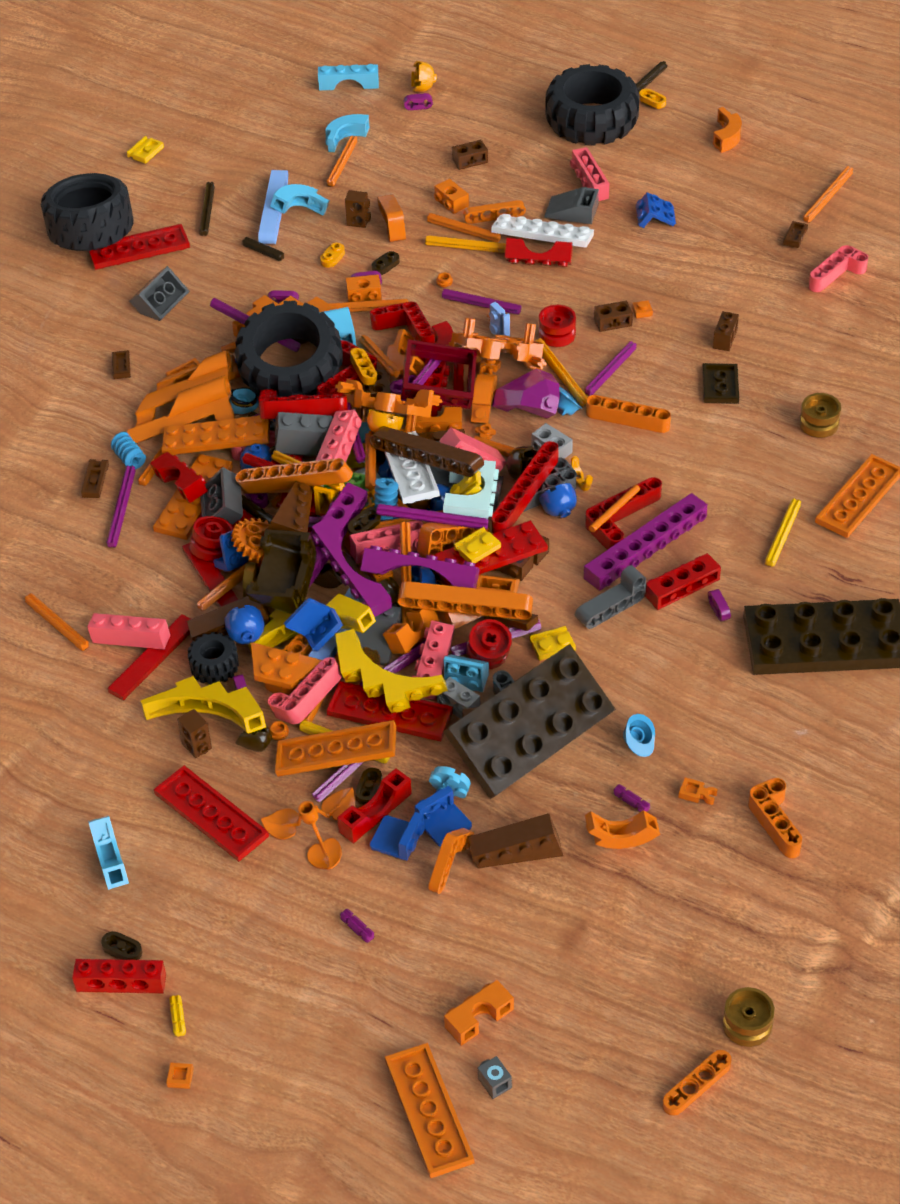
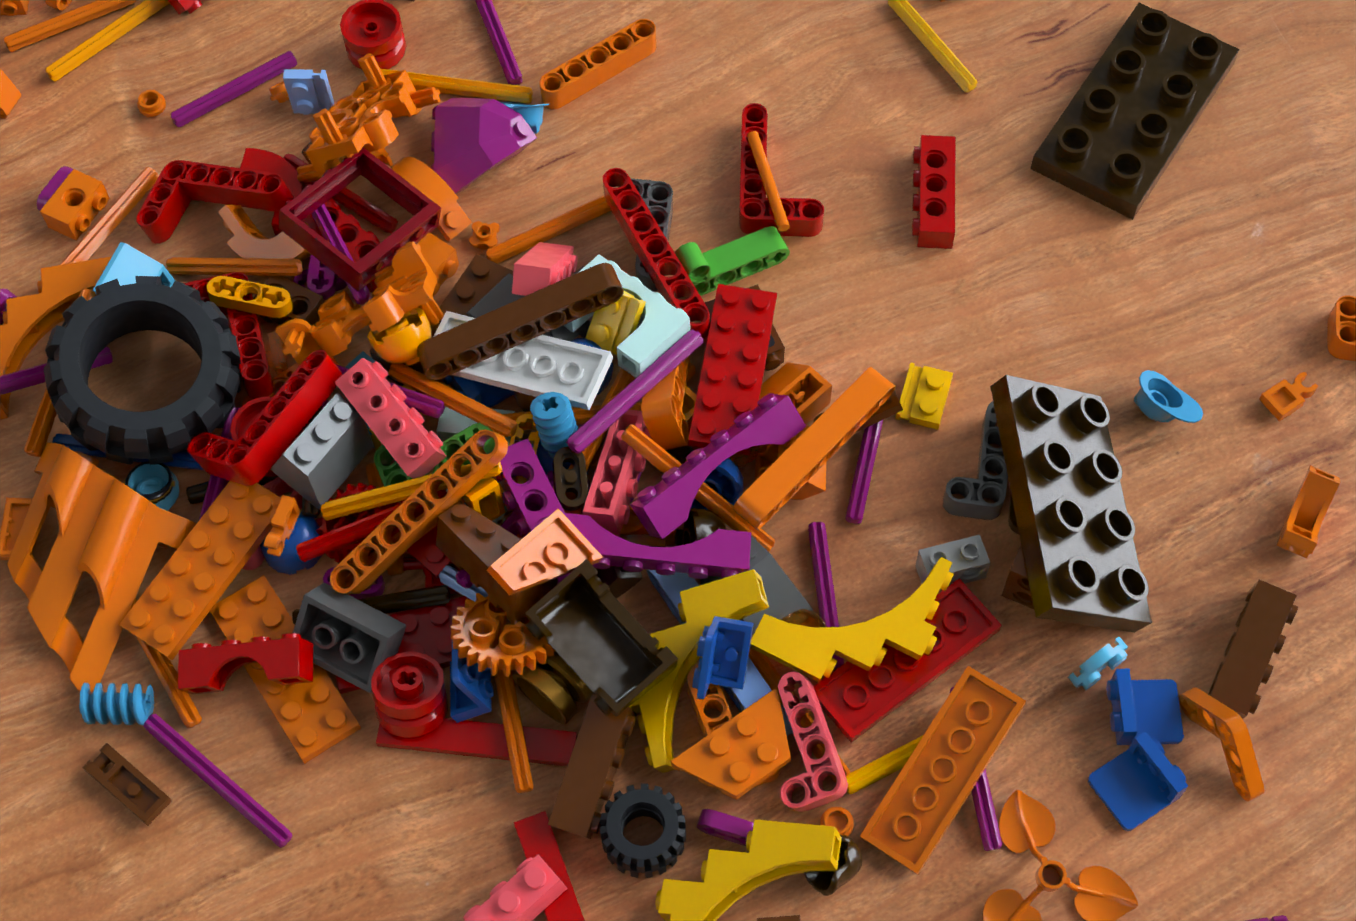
camera: 55 degrees left, 15 degrees up
(244, 624) = (639, 753): blue cylinder -> none
(254, 442) = (283, 519): none -> orange plate
(300, 518) = (543, 555): none -> wing
(366, 787) = (1023, 767): dark brown plate -> none
(386, 262) = (44, 143): dark brown plate -> none
(392, 792) = (1080, 809): red arch -> none
(404, 636) = (797, 556): orange arch -> none
(434, 650) = (863, 550): coral brick -> none
(467, 671) = (913, 524): medium azure slope -> none
(477, 545) = (725, 371): yellow plate -> none
(489, 642) = (891, 468): red wheel -> none
(519, 460) = (589, 231): dark brown cylinder -> none
(548, 433) = (578, 172): light grey brick -> none
(555, 524) = (732, 260): none -> bright green beam
(560, 501) = (696, 225): blue cylinder -> none
(588, 479) = (681, 184): light orange cap -> none
(615, 600) = (911, 282): dark grey beam -> none
(631, 798) = (1249, 472): magenta axle -> none
(645, 541) = (834, 167): magenta brick -> none
(719, 605) = (1004, 180): magenta beam -> none

